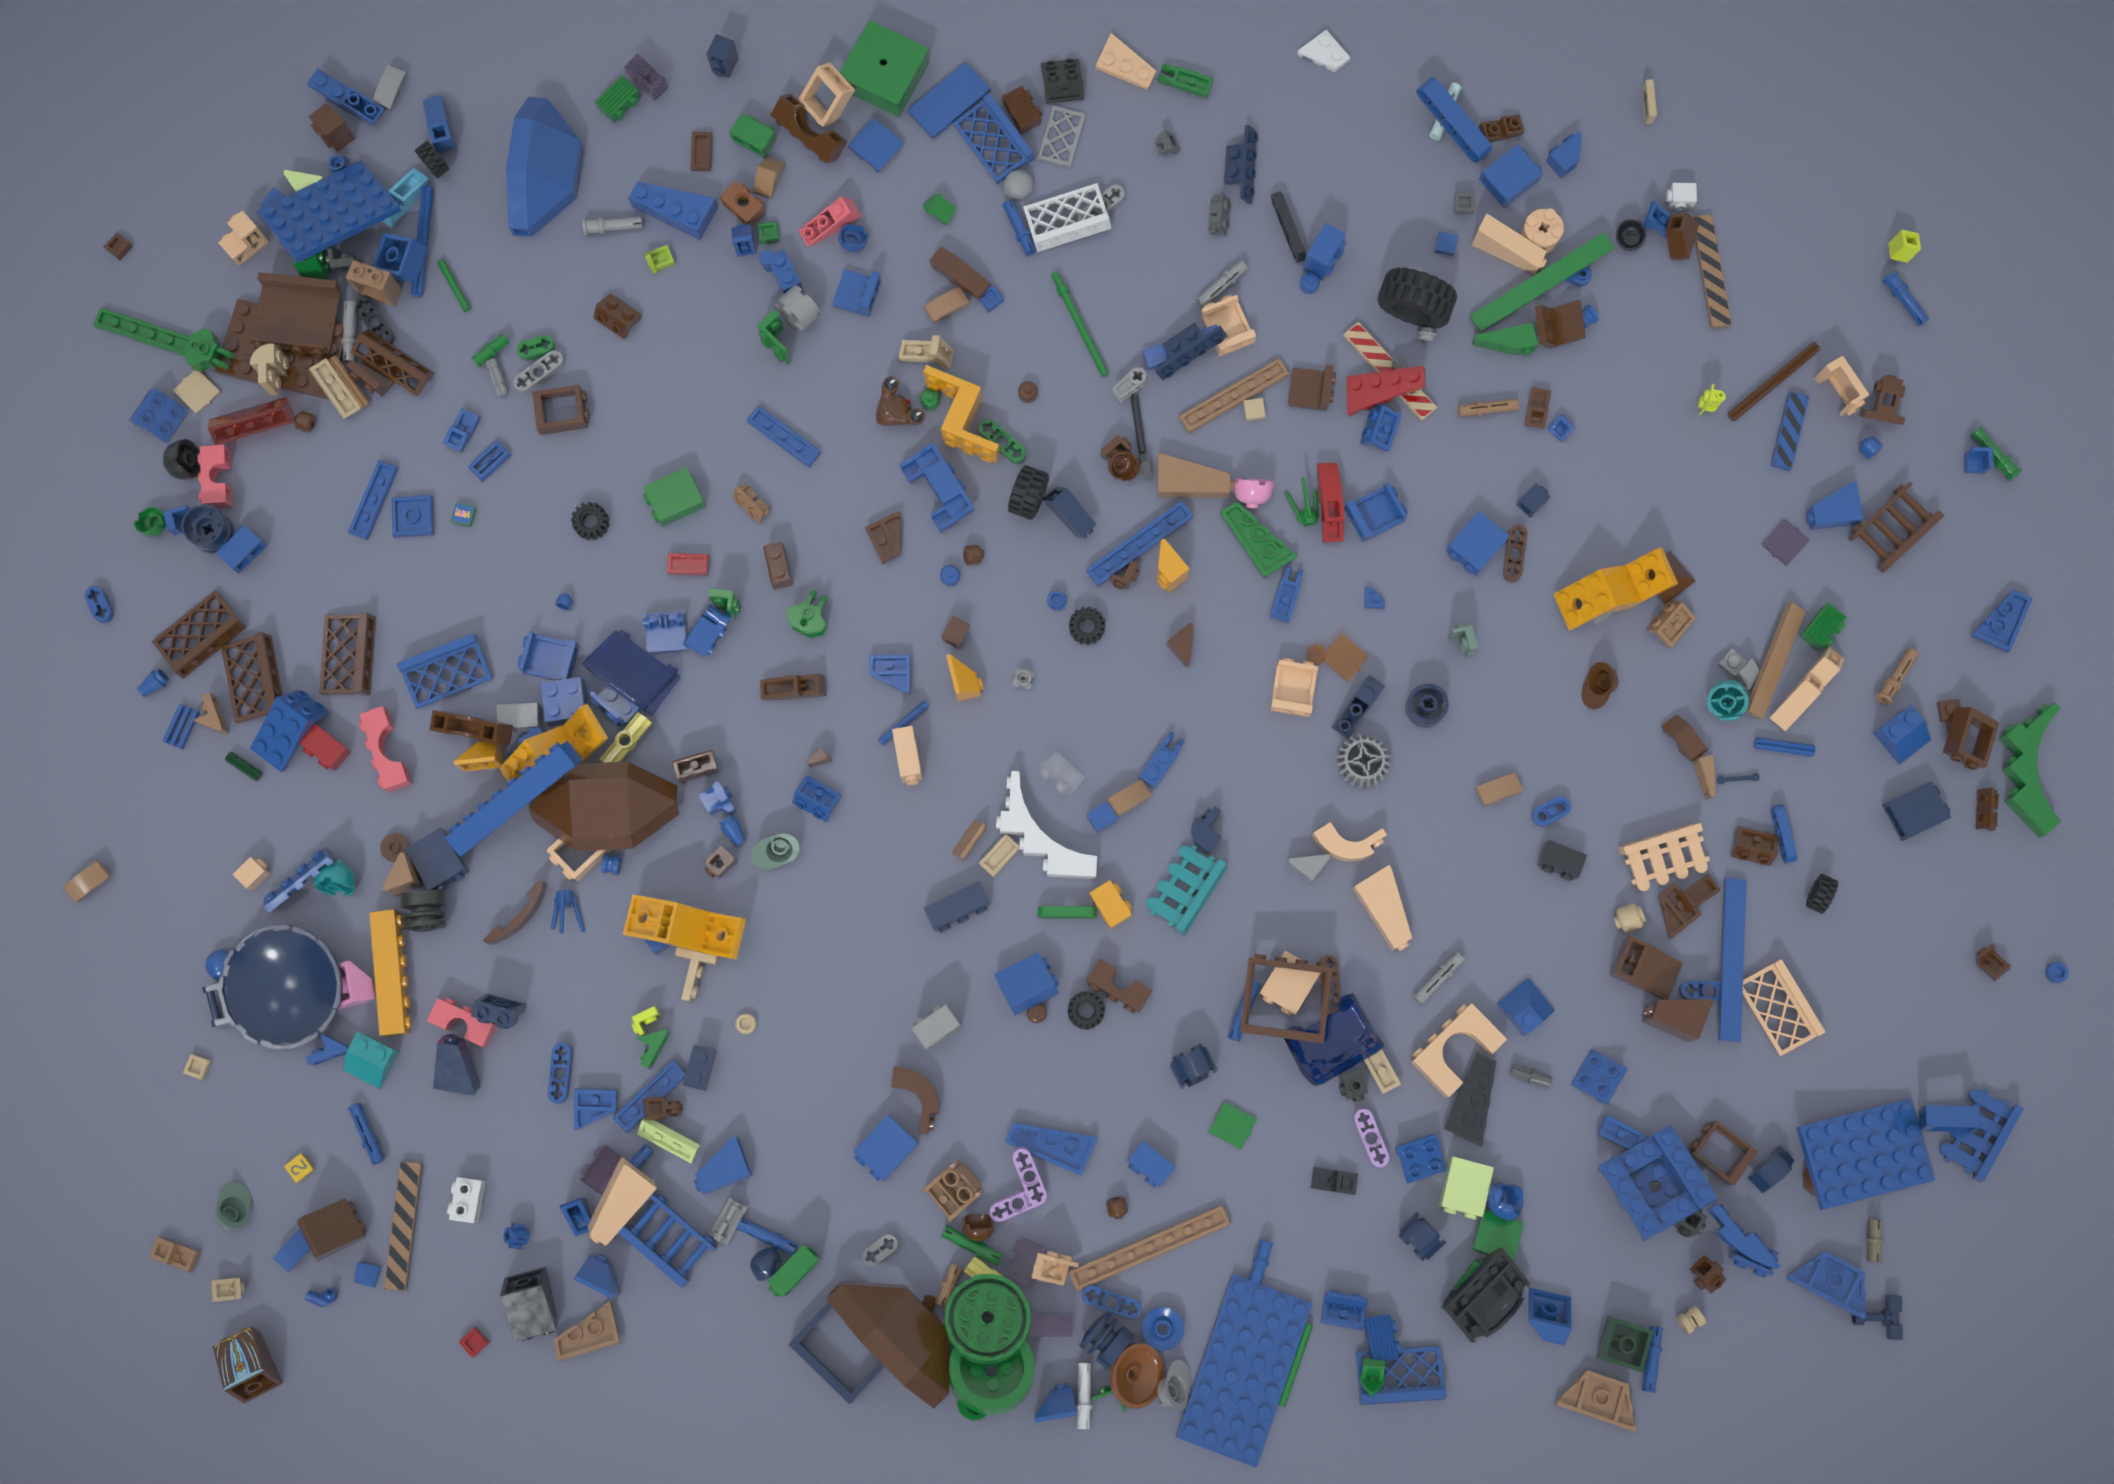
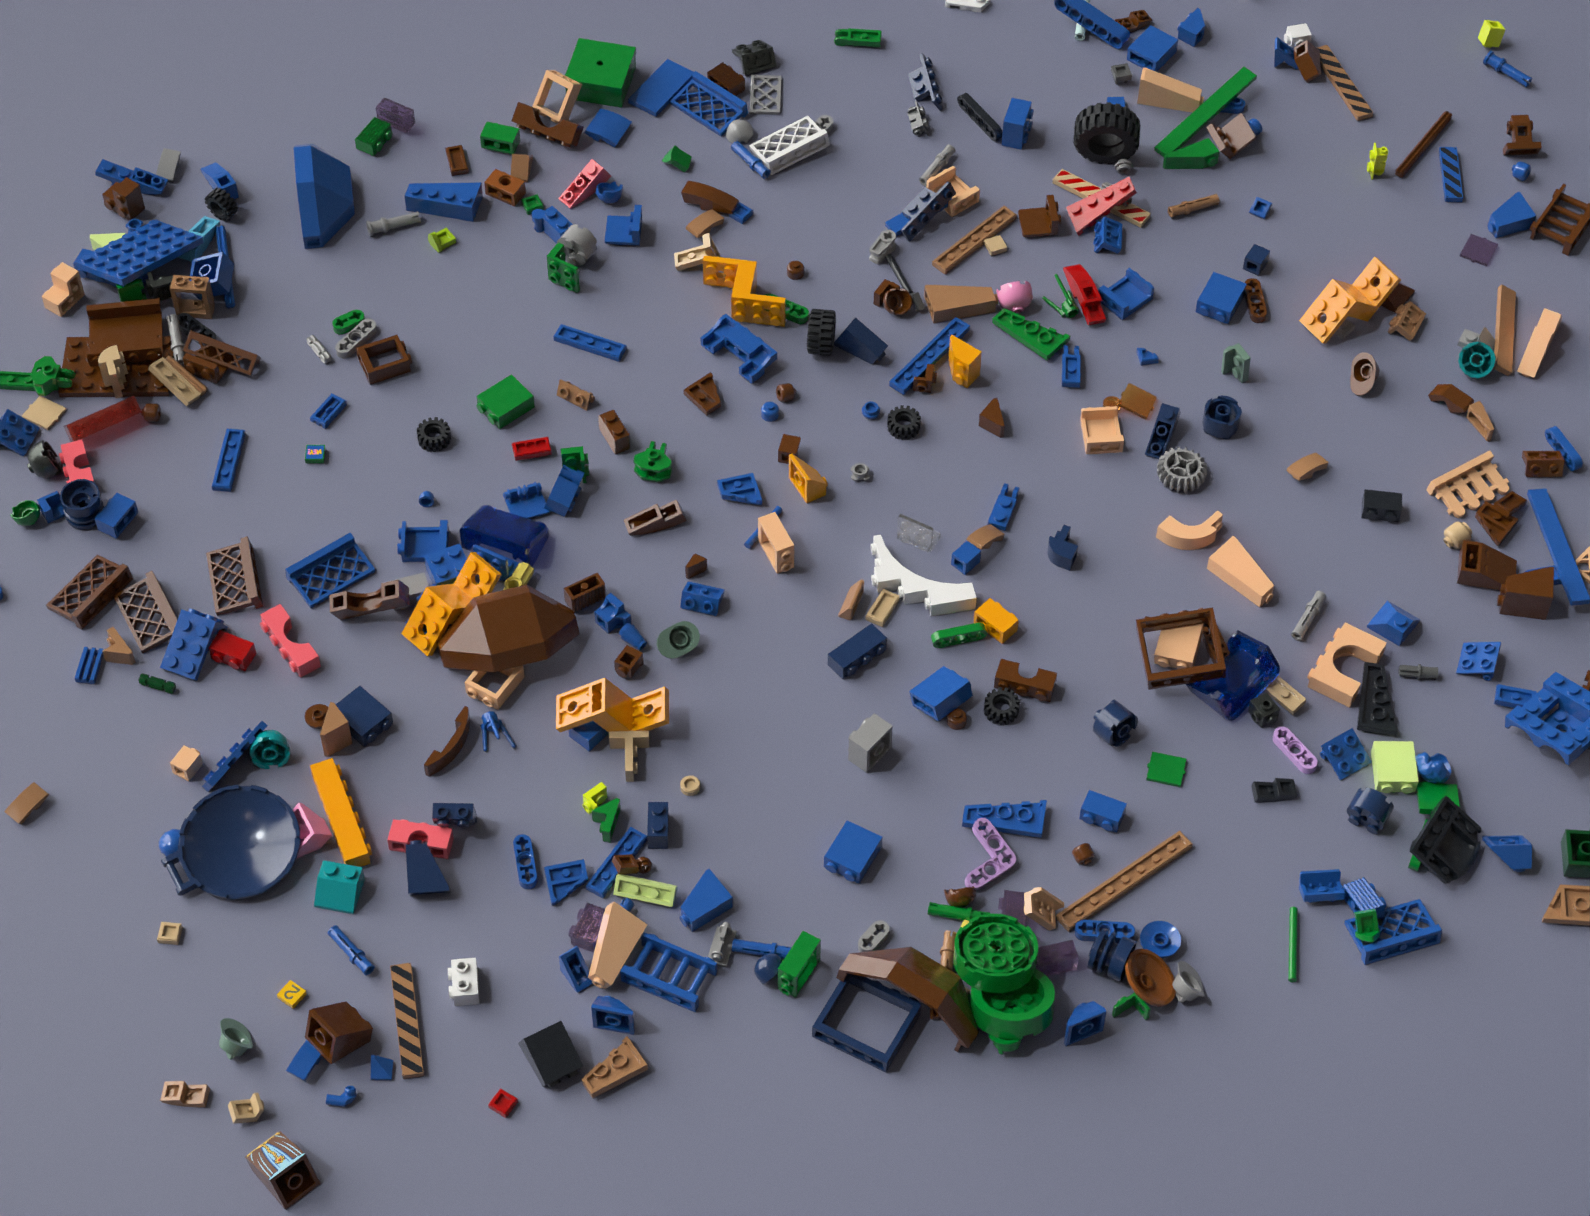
camera: 15 degrees left, 25 degrees down
(153, 682) = (55, 635): blue cone -> none
(332, 1050) = (301, 888): blue slope -> none
(412, 516) = (268, 464): blue tile -> none
(423, 910) = (361, 752): pearl dark grey wheel -> none
(453, 284) = (262, 292): green bar -> none
(462, 431) = (298, 392): blue slope -> none
(481, 757) = (383, 627): light orange slope -> none
(490, 350) = (308, 330): green pin -> none
(513, 798) = (426, 637): blue brick -> none
(516, 1235) = (521, 999): blue gear -> none
(611, 864) = (527, 685): blue wheel -> none
(616, 315) = (414, 285): reddish brown bracket -> none
(722, 56) = (458, 88): dark blue brick -> none
(743, 240) = (514, 210): blue slope -> none
(895, 409) = (684, 302): reddish brown head -> none
(913, 1081) = (868, 796): reddish brown arch -> none
(930, 399) = (711, 291): green piece -> none
(954, 1189) = (926, 872): medium nougat slope -> none
(1063, 291) = (802, 195): green bar -> none
(1083, 1402) = (1110, 1020): white pin -> none
(1125, 64) = (803, 37): light nougat wing -> none
(1169, 142) = (858, 80): dark grey tile -> none
(1195, 882) = (1070, 606): teal fence -> none
(1234, 1032) = (1141, 683): blue pin -> none
(1244, 1370) = (1247, 960): blue plate -> none
(1260, 1261) = (1231, 867): blue pin -> none
(1308, 866) = (1161, 555): light grey slope -> none
(1309, 283) = (1011, 151): blue piece -> none
(1537, 408) = (1235, 198): reddish brown slope -> none
(1543, 228) = (1194, 74): light nougat brick -> none
(1550, 812) = (1357, 475): blue plate -> none
(1630, 235) = (1266, 68): black hair -> none
(1721, 779) = (1522, 415): dark blue hinge -> none
(1784, 746) = (1540, 388): blue axle -> none
(1823, 627) = (1535, 297): green brick -> none
(1845, 383) = (1481, 129): light nougat panel -> none

